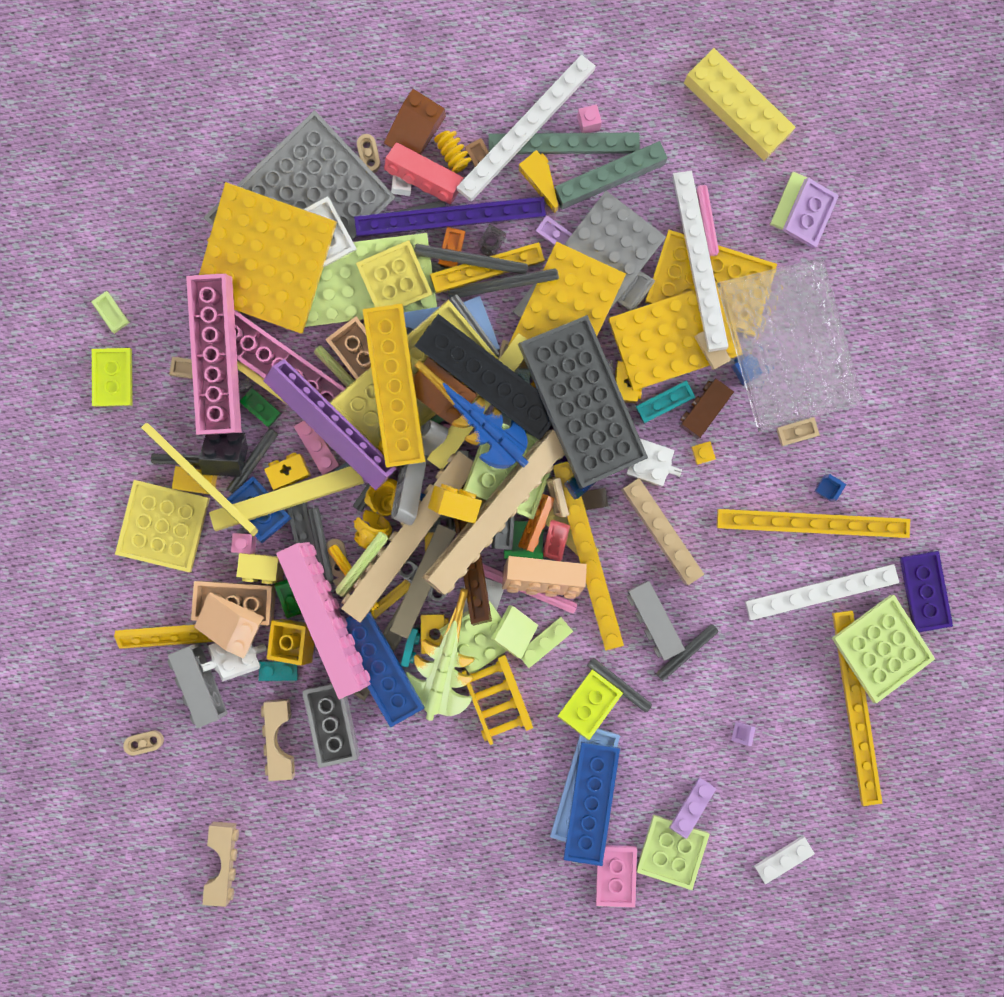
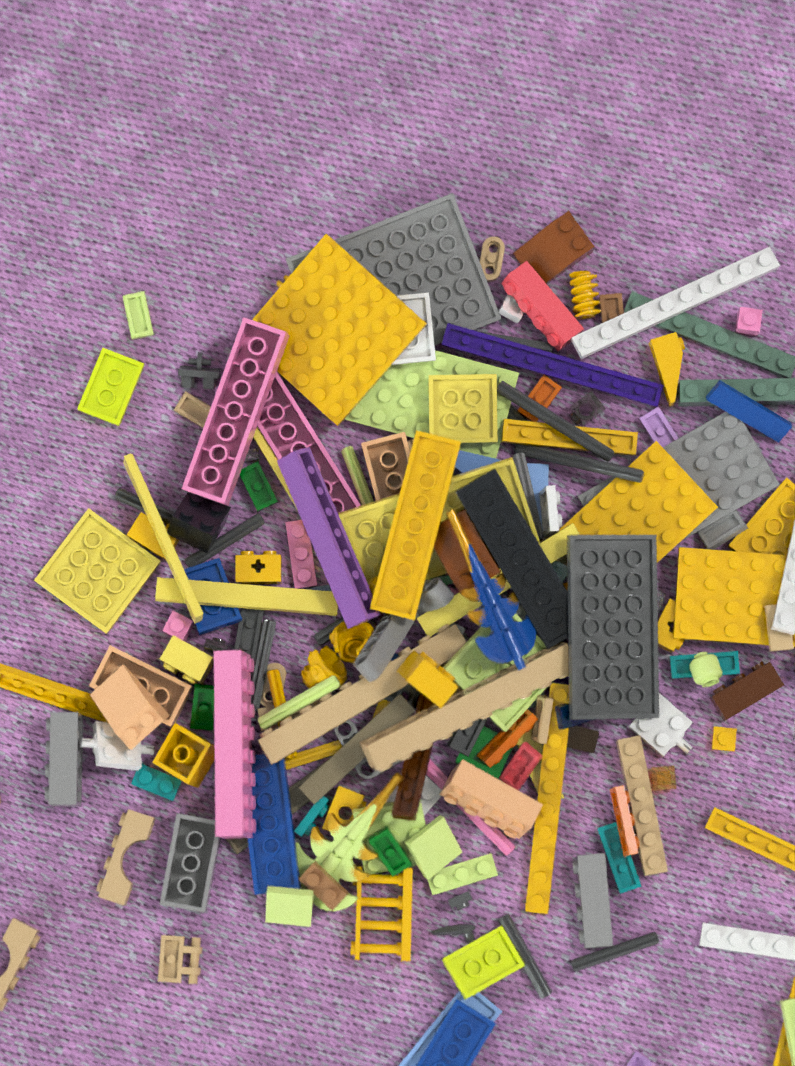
camera: 25 degrees right, 5 degrees down
(169, 341) = (189, 373): none -> dark grey hips
(279, 545) = (215, 645): none -> clear smoke plate
(347, 802) = (171, 959): none -> tan plate
(421, 725) = (289, 906): none -> yellowish green tile
(441, 699) = (323, 885): none -> medium nougat plate
(481, 650) = (389, 851): none -> green plate
(498, 336) = (550, 518): none -> white plate
(552, 664) = (460, 901): none -> dark grey plate
(557, 687) = (466, 929): none -> dark grey bar
(618, 188) = (749, 411): none -> blue tile
(654, 549) = (624, 820): none -> orange plate
(660, 578) = (621, 867): none -> teal plate
(668, 405) = (705, 669): none -> yellowish green head
(669, 503) = (662, 778): none -> clear yellow brick

